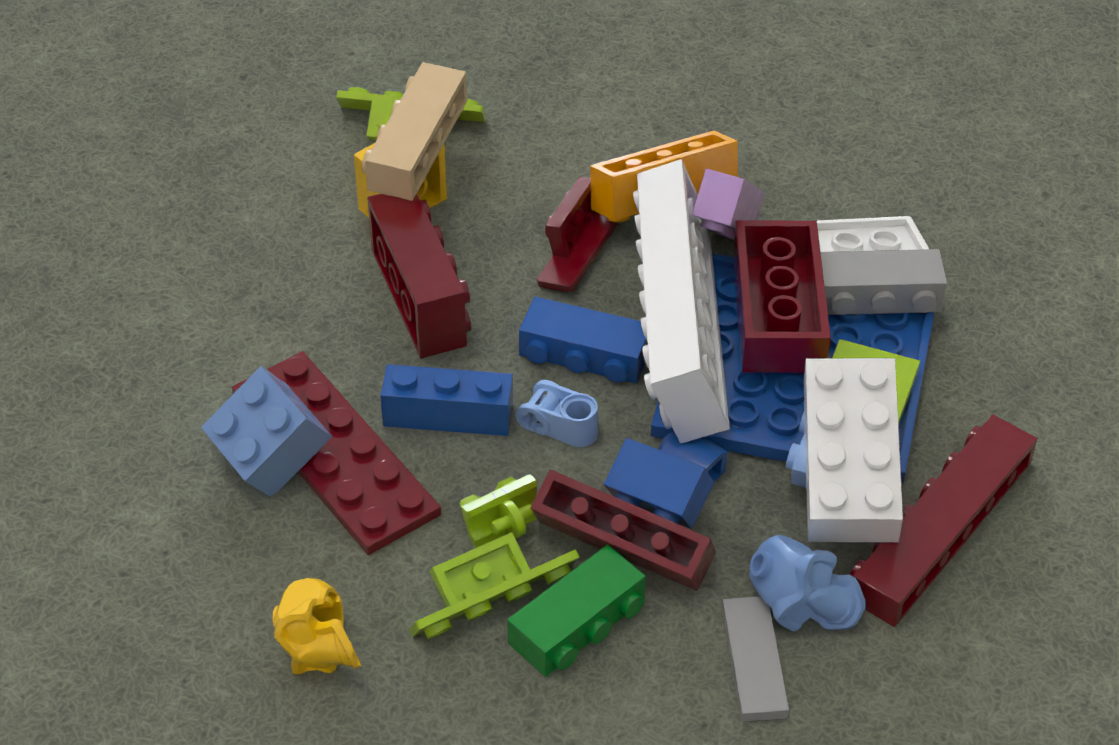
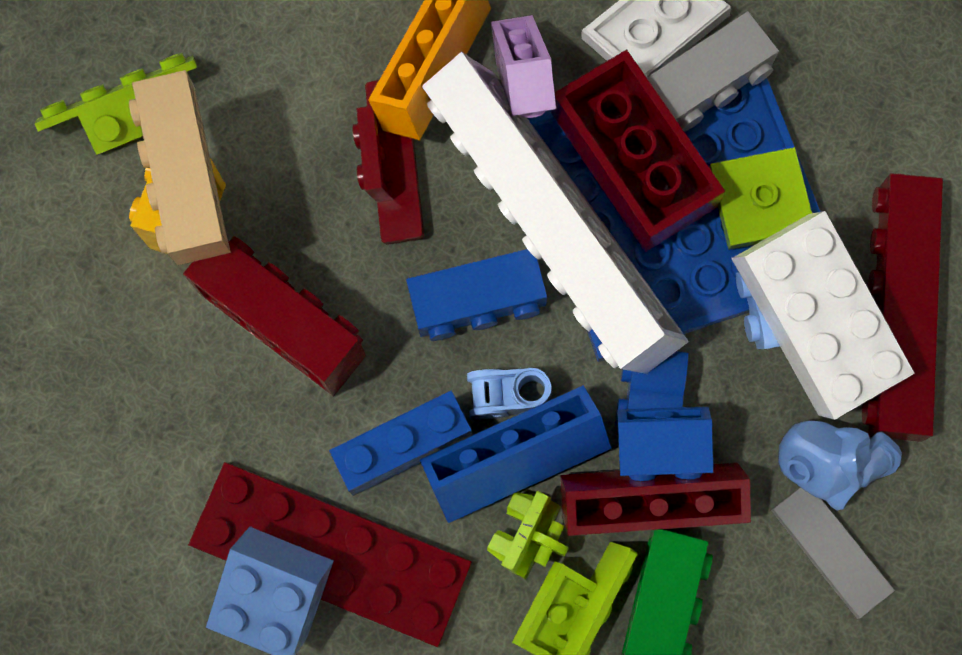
camera: 30 degrees left, 30 degrees up
(529, 445) = (516, 453): none -> blue brick

